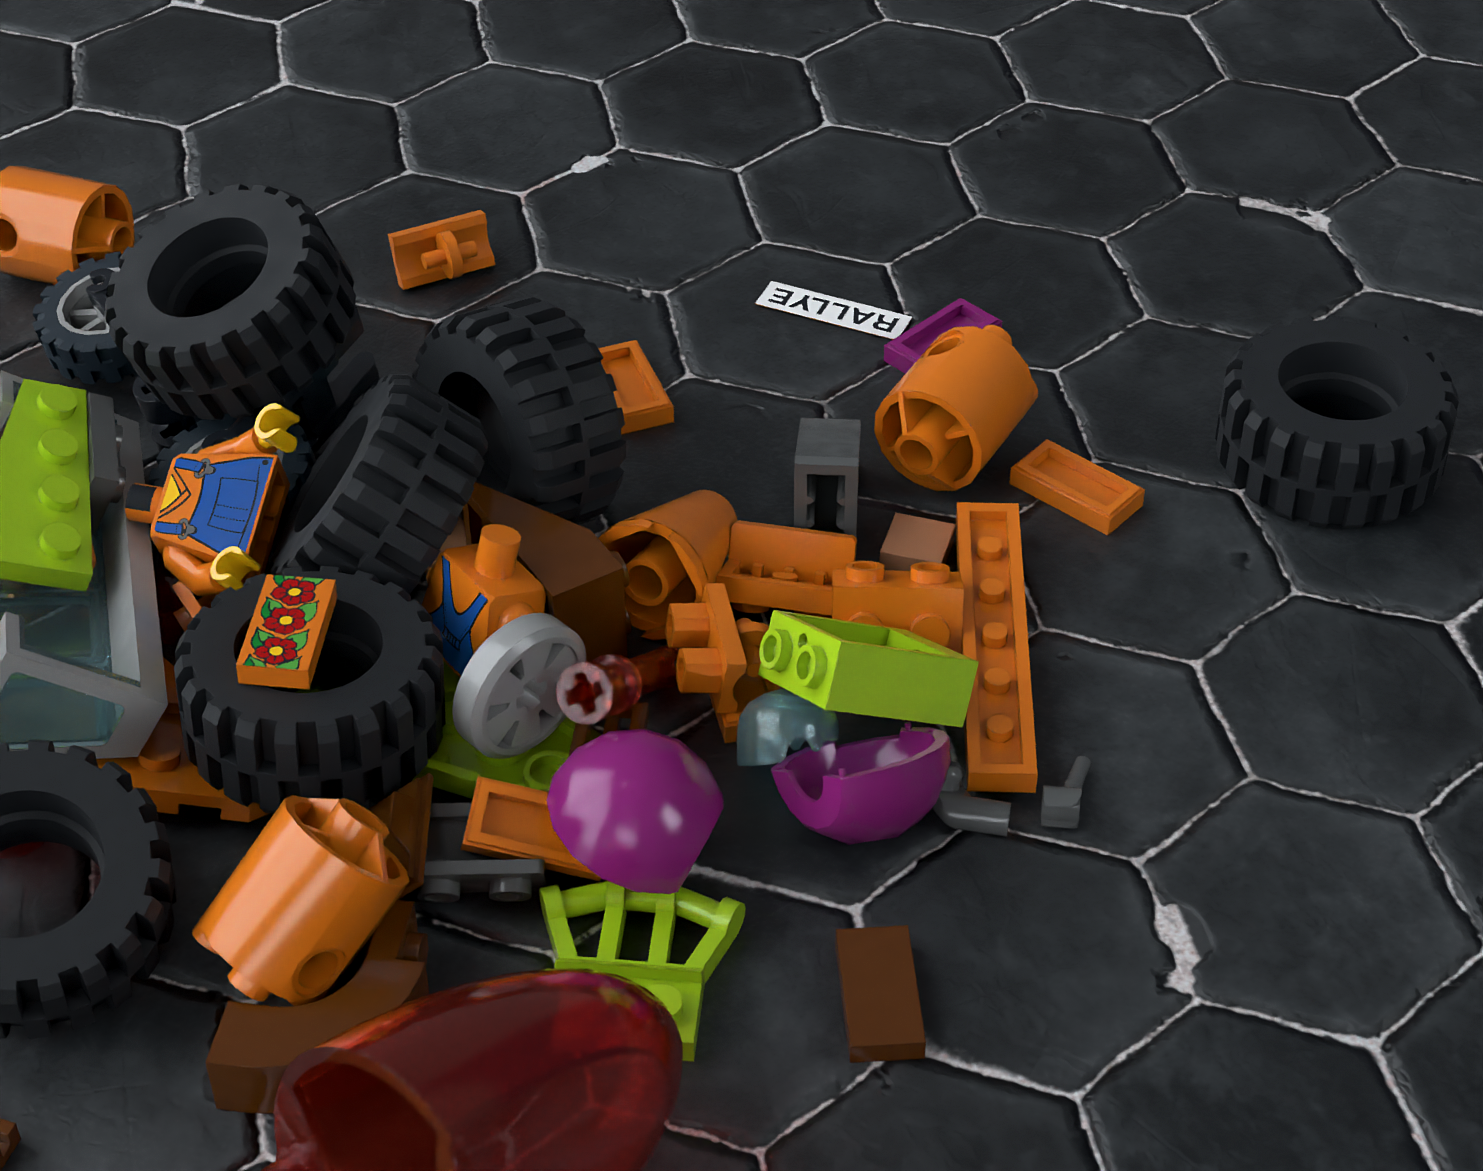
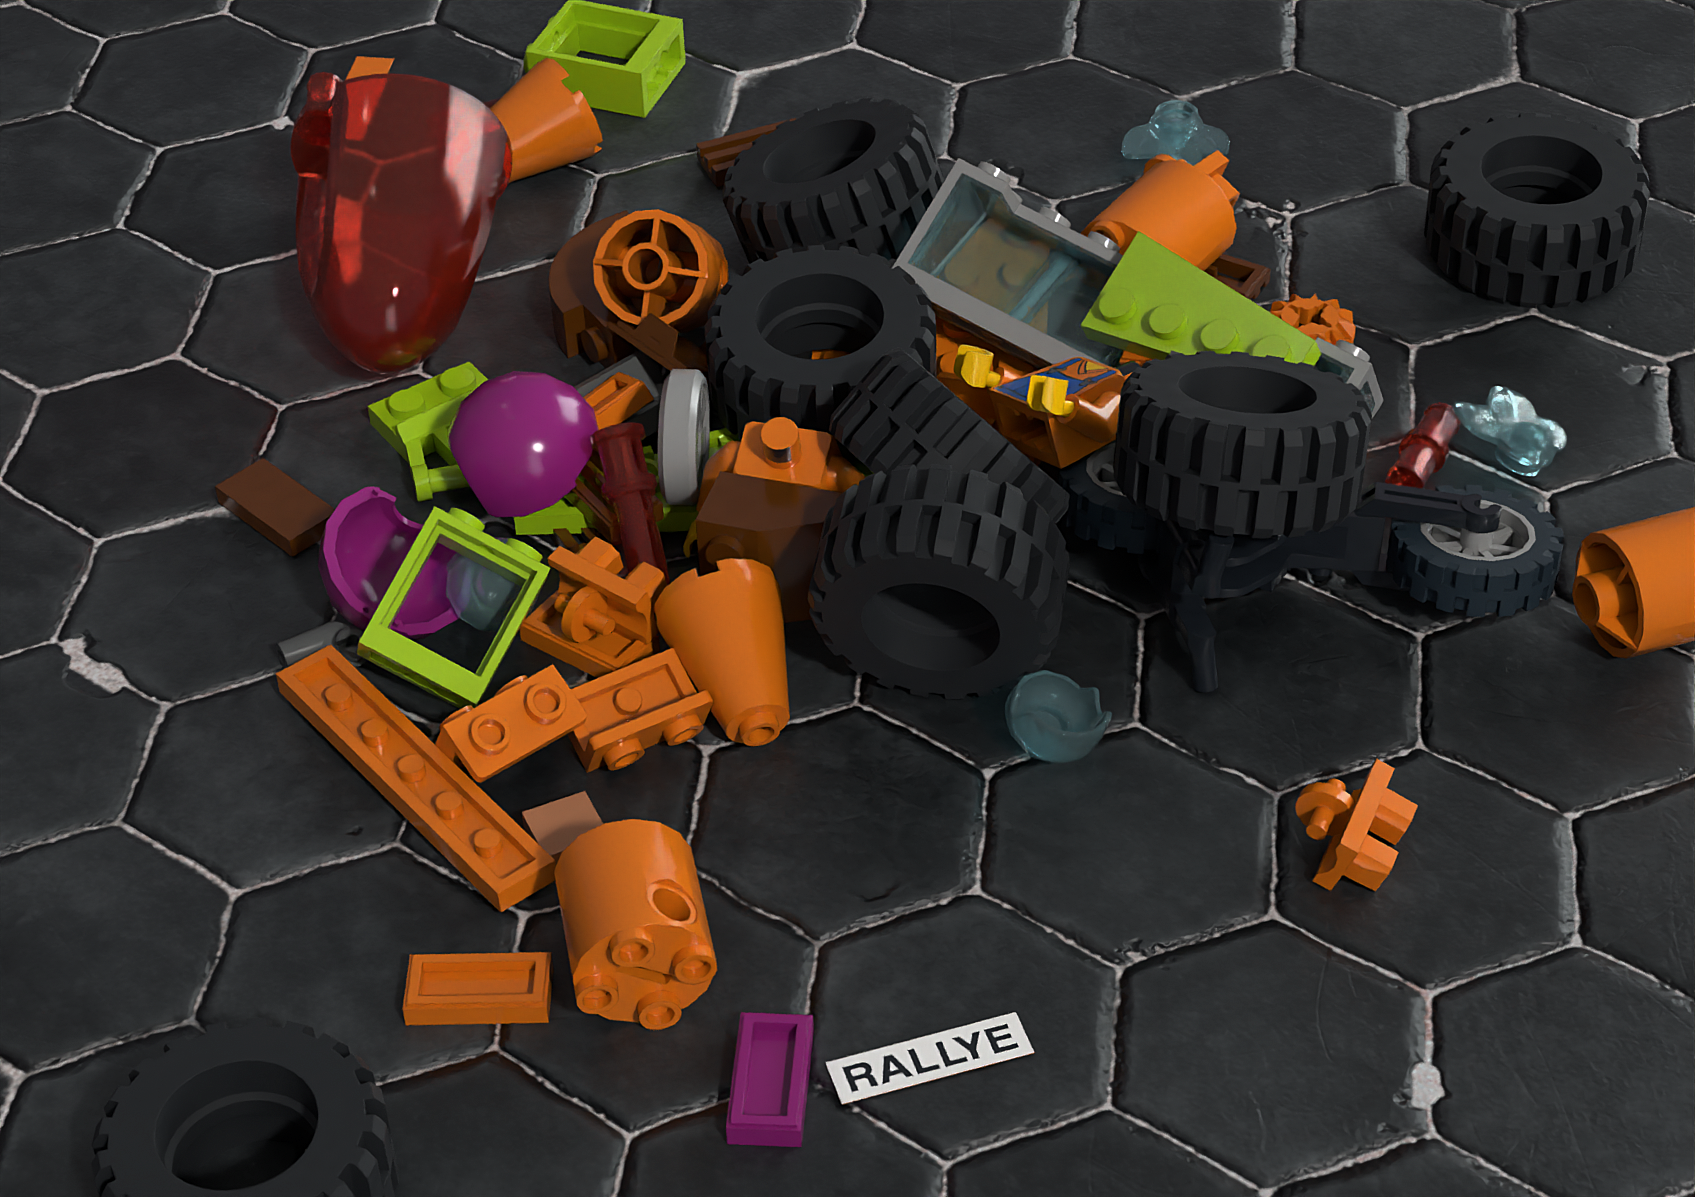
camera: 140 degrees right, 0 degrees up
(287, 632) = (832, 298): tile -> none
(638, 387) = (1003, 826): orange tile -> none
(827, 475) = (676, 778): dark grey slope -> none
(1062, 804) = (250, 687): dark grey hand -> none

